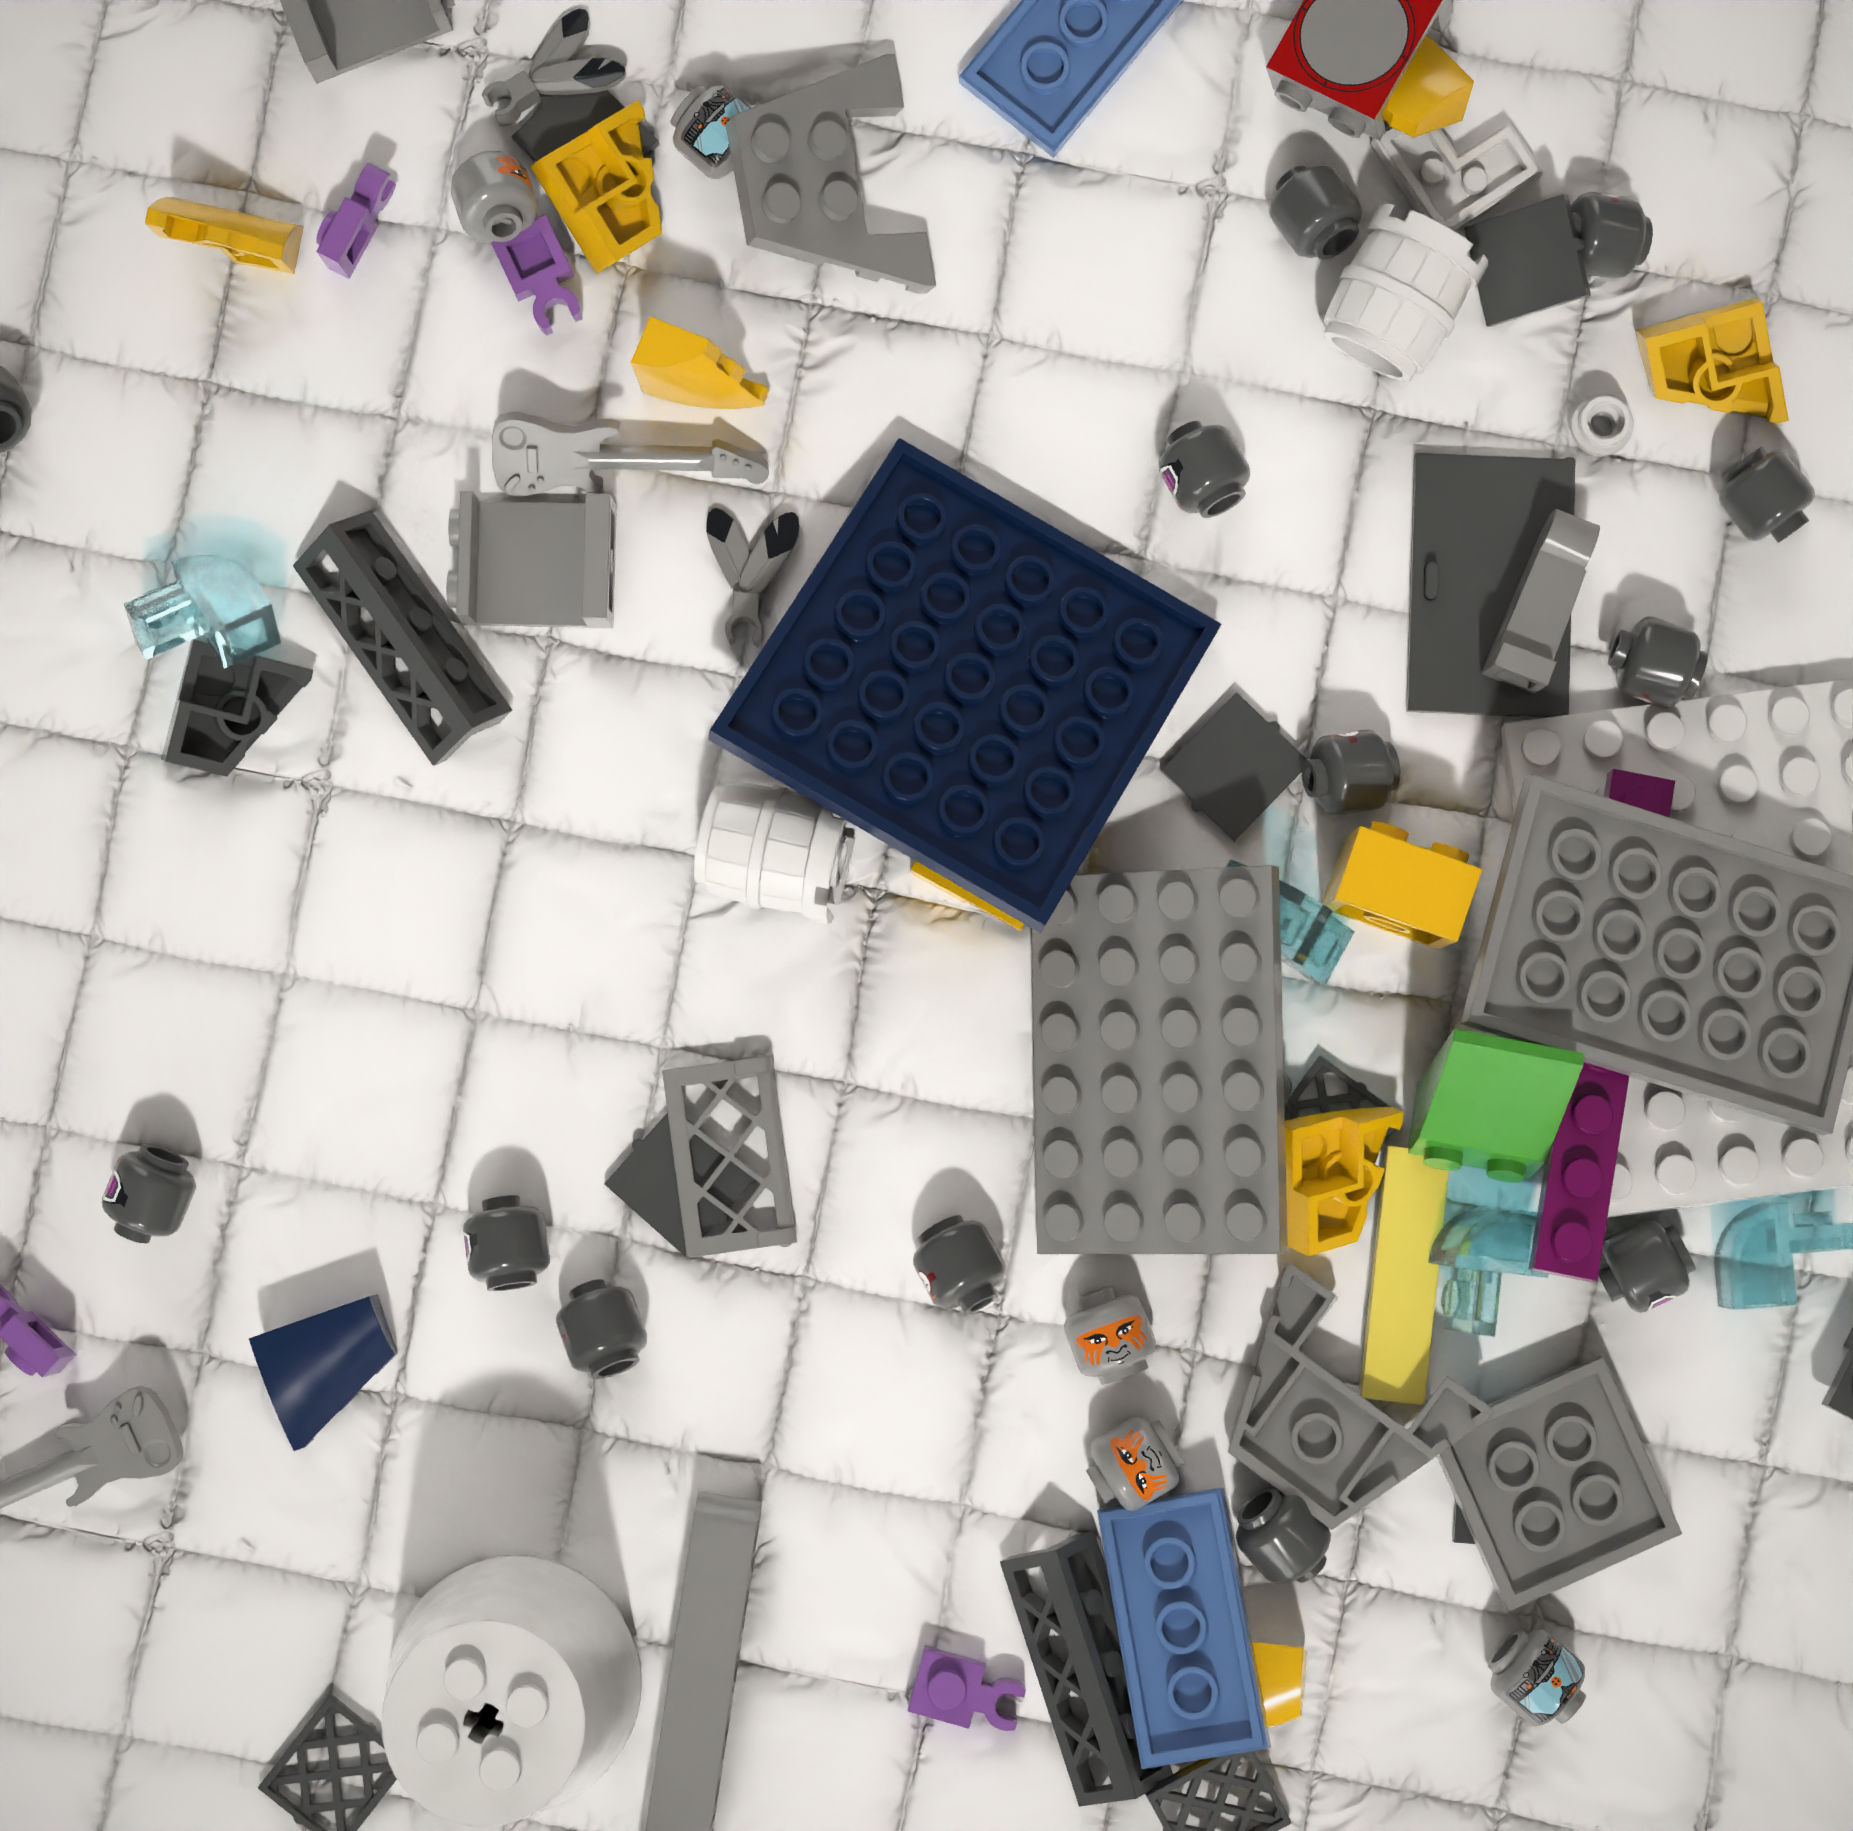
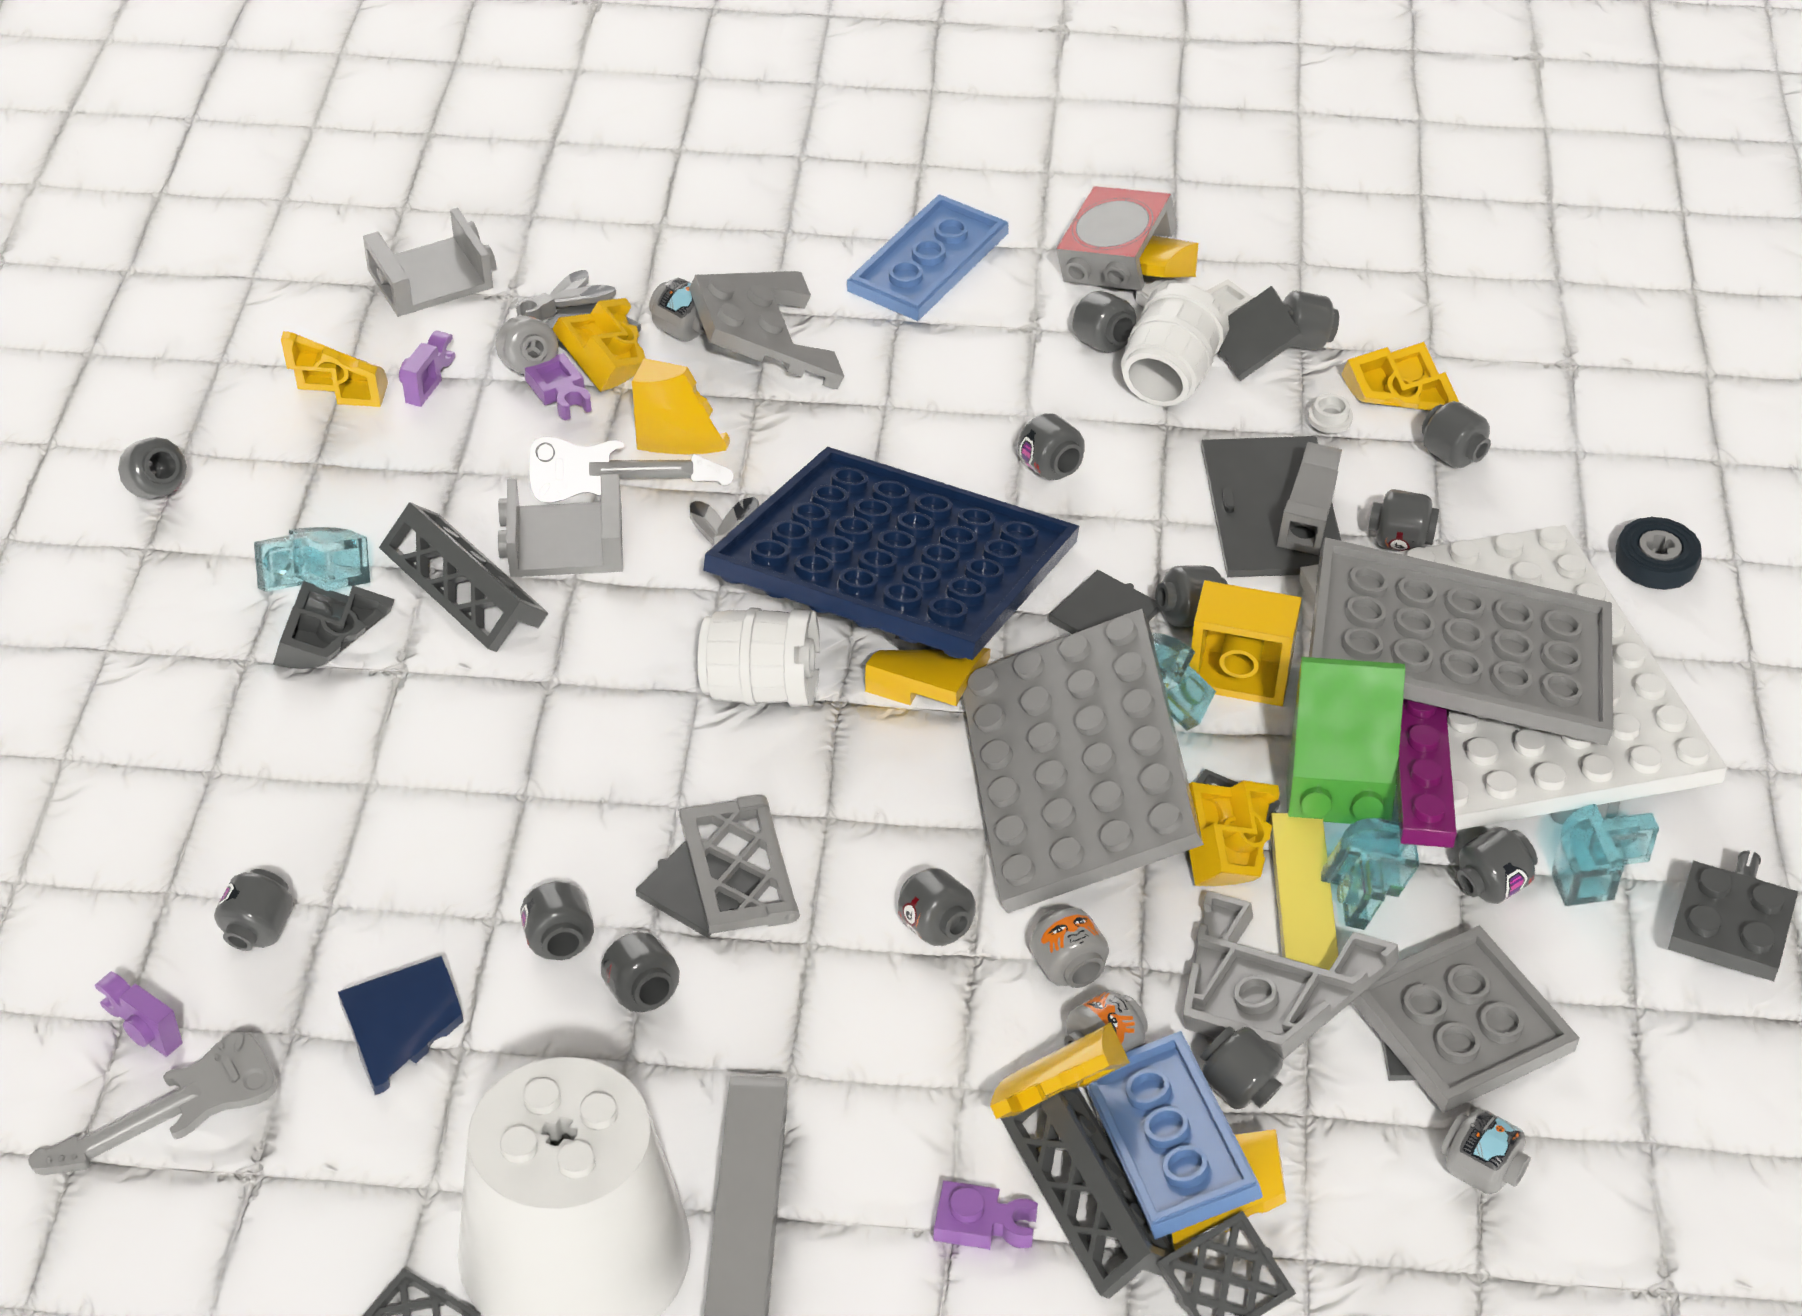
camera: 10 degrees left, 40 degrees down
(1067, 1548) = (1061, 1070): none -> yellow slope

